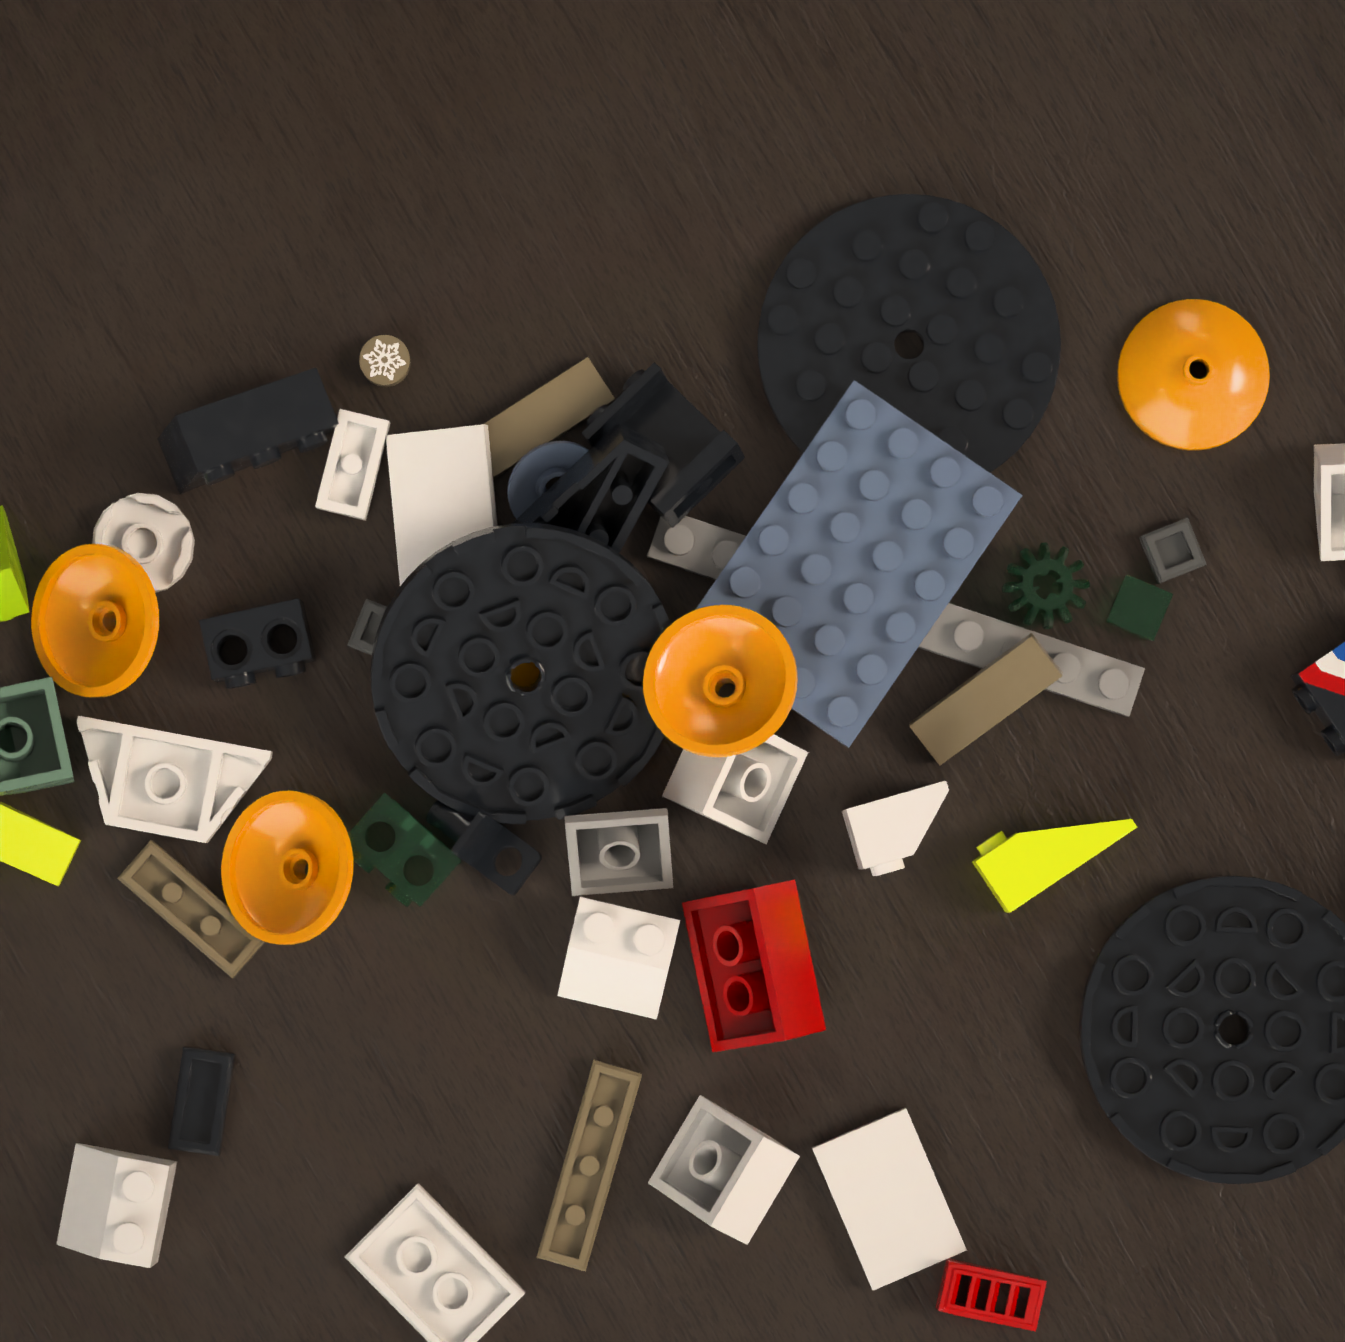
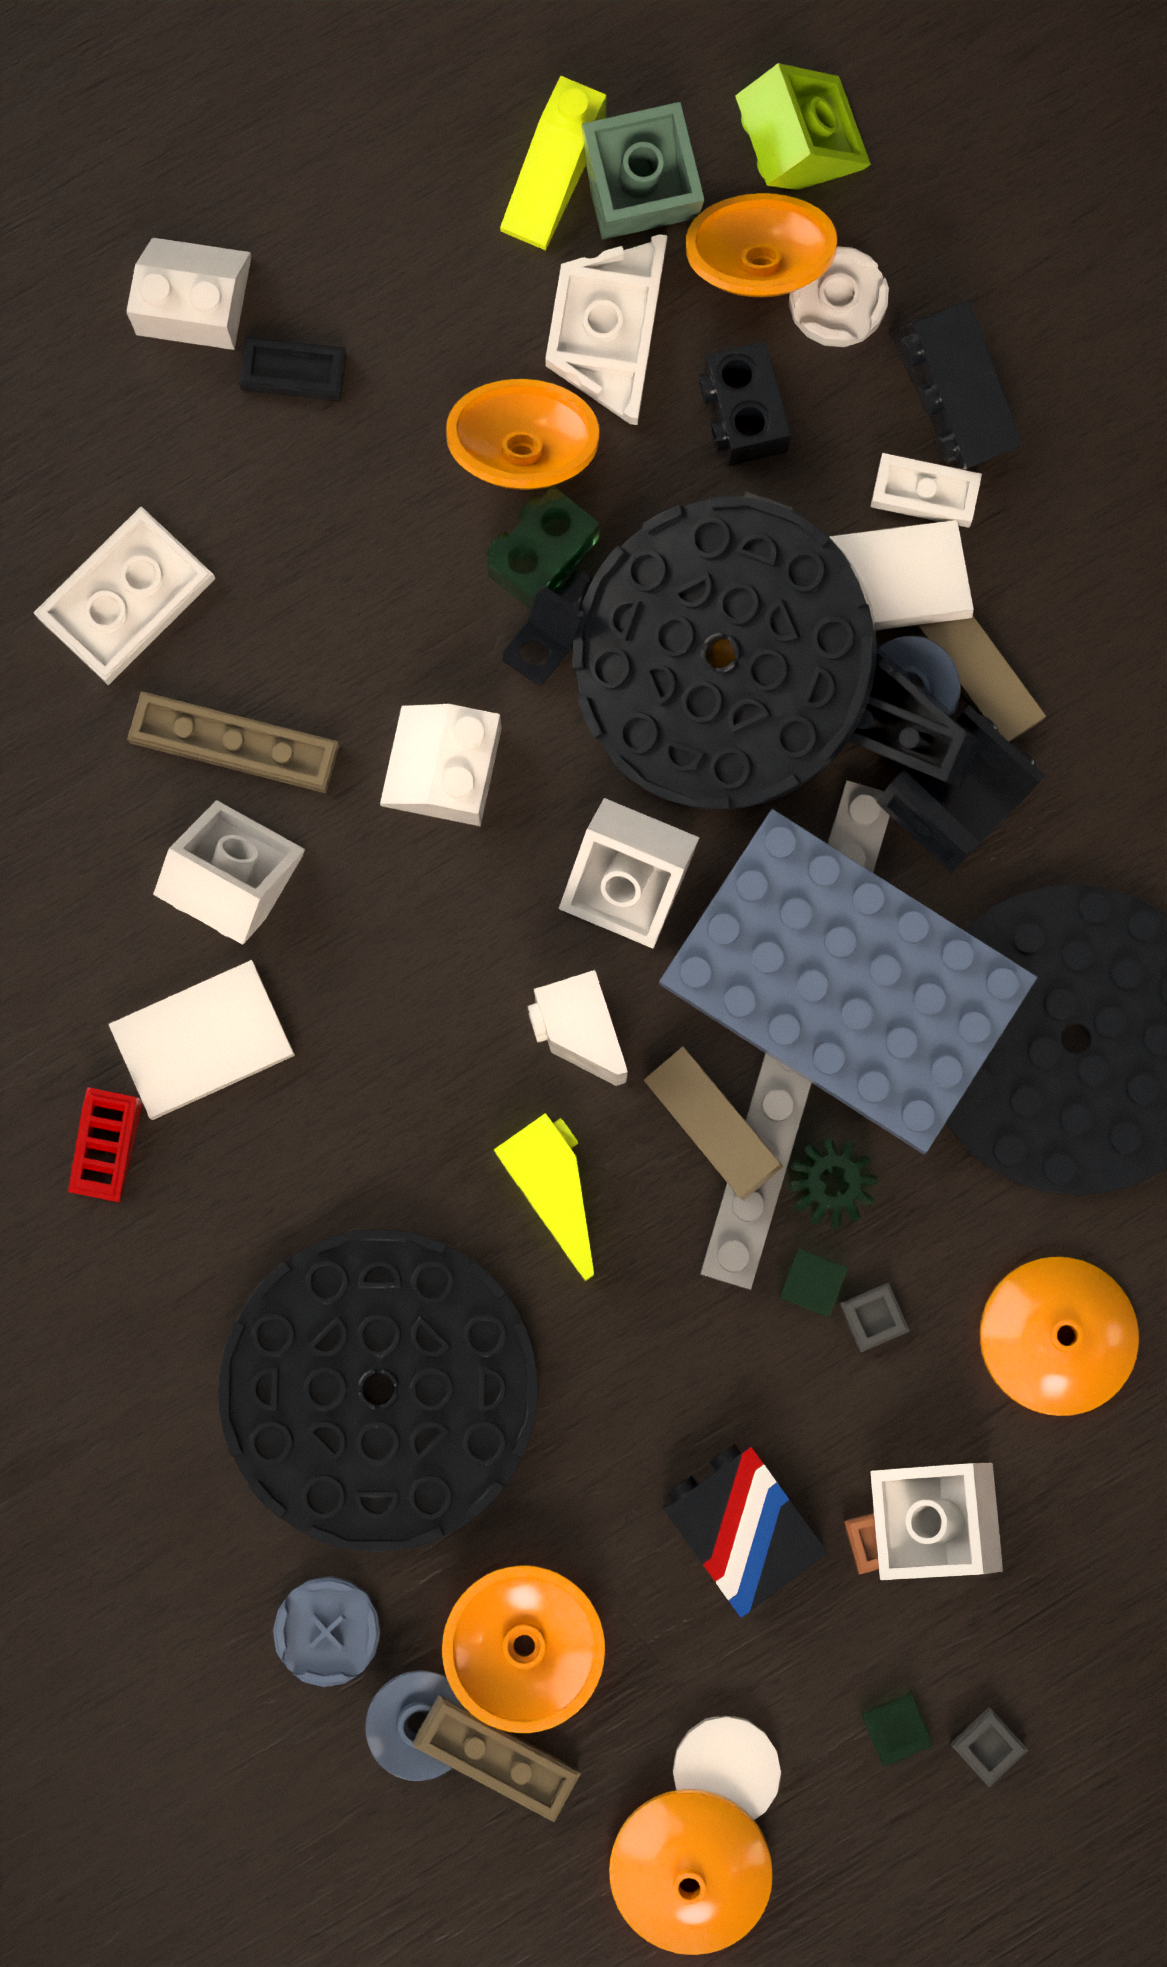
camera: 90 degrees right, 5 degrees down
(190, 908) = (481, 350): dark tan tile -> none
(385, 360) = (1031, 520): dark tan tile -> none
(619, 851) = (548, 759): light grey slope -> none
(701, 656) = (739, 819): light orange dish -> none
(754, 966) = (434, 897): red slope -> none

